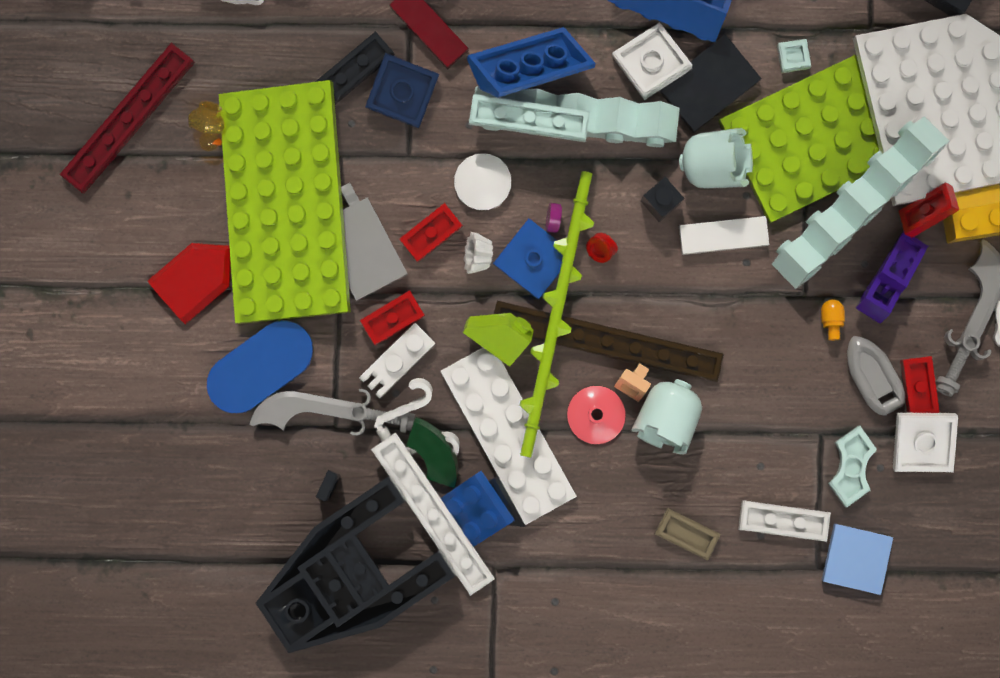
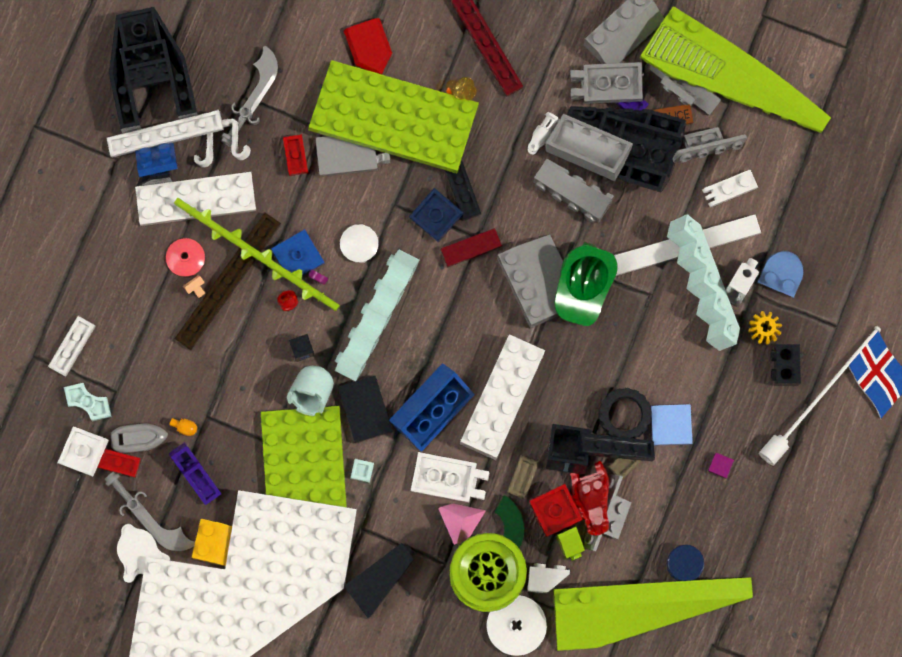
camera: 110 degrees right, 5 degrees down
(260, 367) = (298, 65): blue tile -> none
(328, 485) = (210, 80): black tile -> none
(398, 359) = (269, 150): white hinge -> none
(431, 232) = (339, 198): red plate -> none
(436, 452) = (196, 149): dark green tile -> none
(477, 253) = (313, 221): white piece -> none
(500, 334) = (257, 213): lime slope -> none
(528, 62) = (419, 296): blue slope -> none
(529, 118) = (382, 280): light aqua tile -> none
(652, 61) = (393, 377): white tile -> none
(669, 416) = (164, 297): light aqua cylinder -> none
(687, 534) = (88, 283): dark tan tile -> none
(723, 235) = (264, 379): white tile -> none
(857, 559) = (29, 381): light blue tile -> none
(859, 201) = (247, 464): light aqua brick -> none
(929, 211) = (225, 510): red plate -> none

